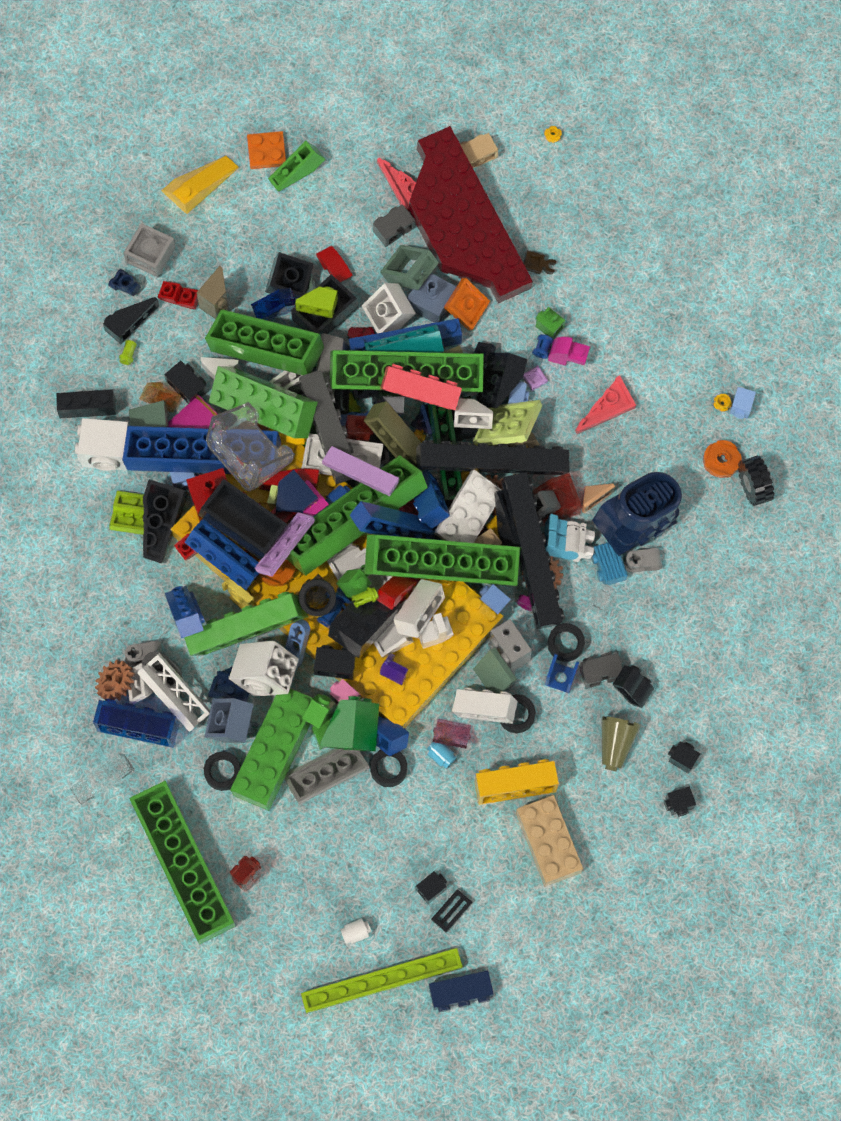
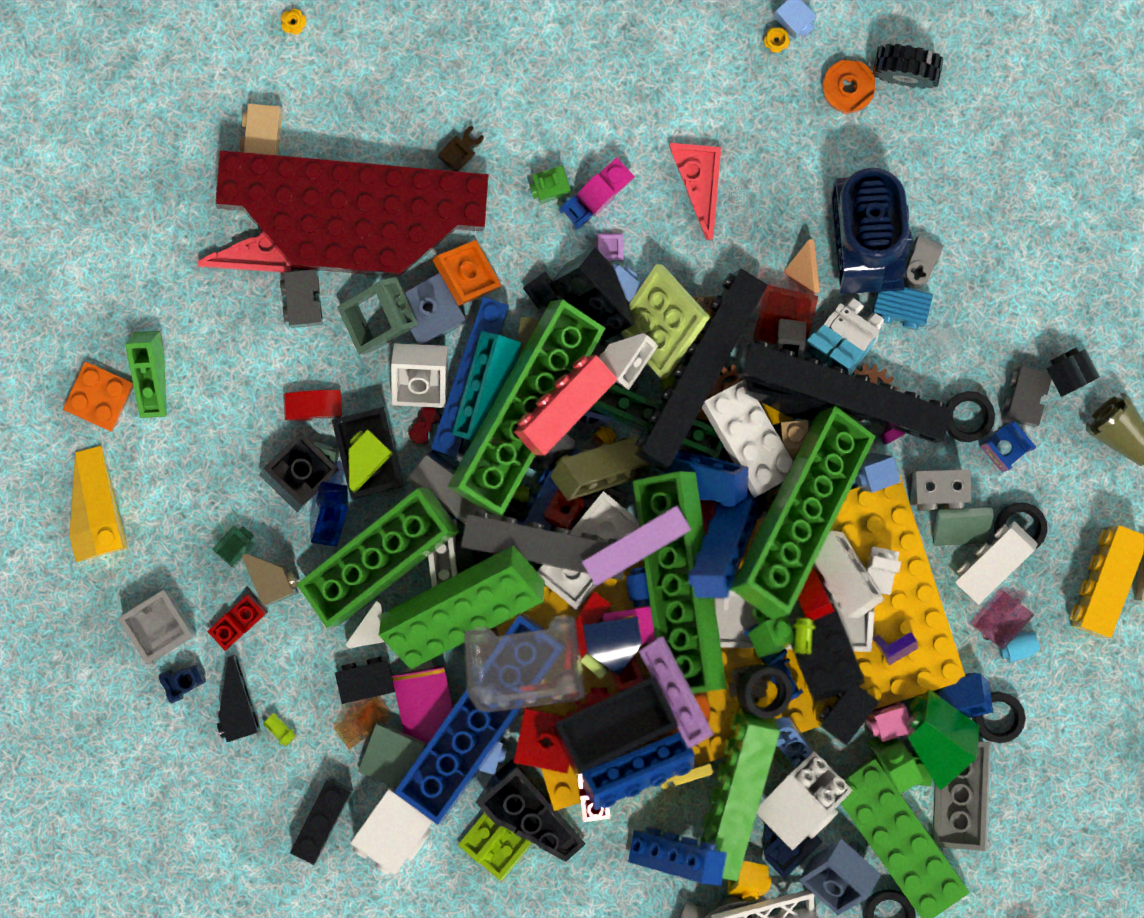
camera: 60 degrees left, 15 degrees up
(195, 670) = (752, 882): none -> yellow brick
(228, 265) = (234, 545): none -> clear green brick

